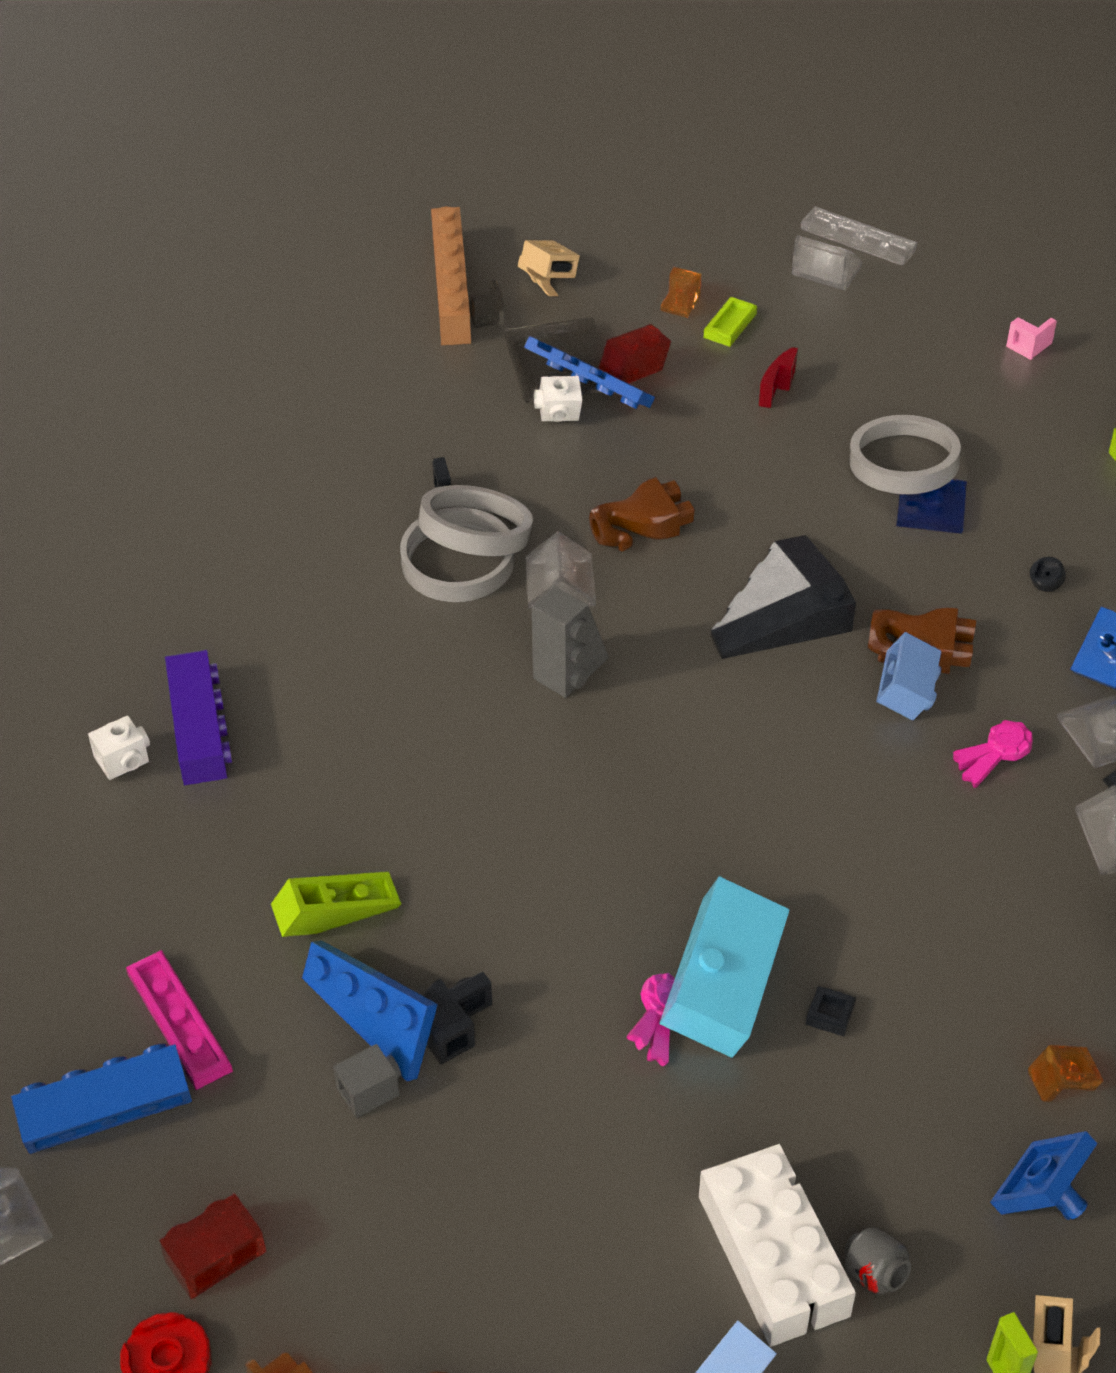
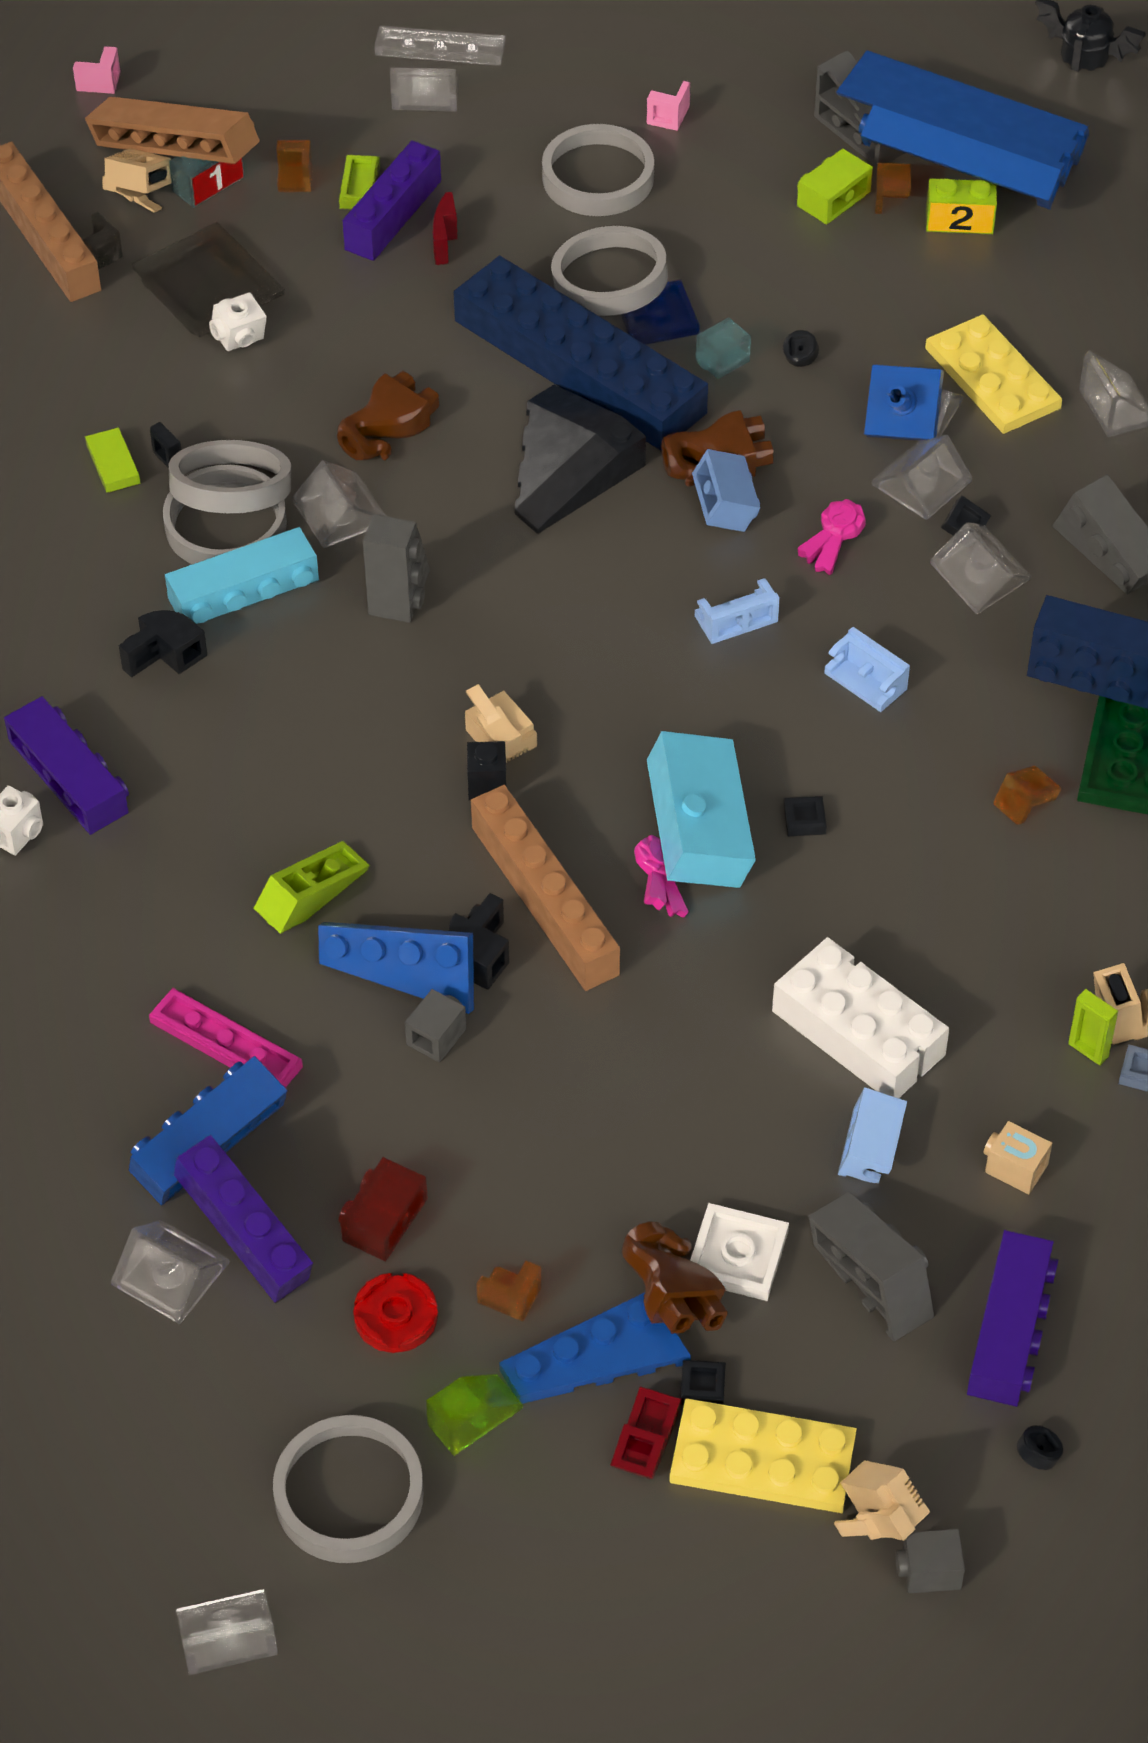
camera: 25 degrees left, 5 degrees up
(71, 1201) = (243, 1218): none -> dark purple brick
(342, 636) = (163, 636): none -> black brick
(395, 478) = (112, 460): none -> lime tile
(438, 608) = (243, 576): none -> medium azure brick
(541, 989) = (545, 888): none -> medium nougat brick
(550, 855) = (485, 767): none -> black brick
(566, 182) = (100, 76): none -> bright pink panel
(586, 817) = (499, 720): none -> tan piece
(590, 233) = (173, 129): none -> medium nougat brick
(605, 382) = (276, 289): blue wing -> none
(607, 273) = (201, 179): none -> brick
(635, 354) = (289, 250): clear red brick -> none
(746, 342) = (392, 200): none -> dark purple brick
(842, 515) = (579, 350): none -> dark blue brick
(865, 794) = (739, 614): none -> light blue hinge
(877, 1260) = (950, 999): dark grey head -> none
(940, 399) = (598, 203): none -> light grey piece
(962, 890) = (868, 669): none -> light blue hinge
(973, 551) = (723, 348): none -> clear light blue brick
(1045, 1177) = (1053, 880): blue tile -> none

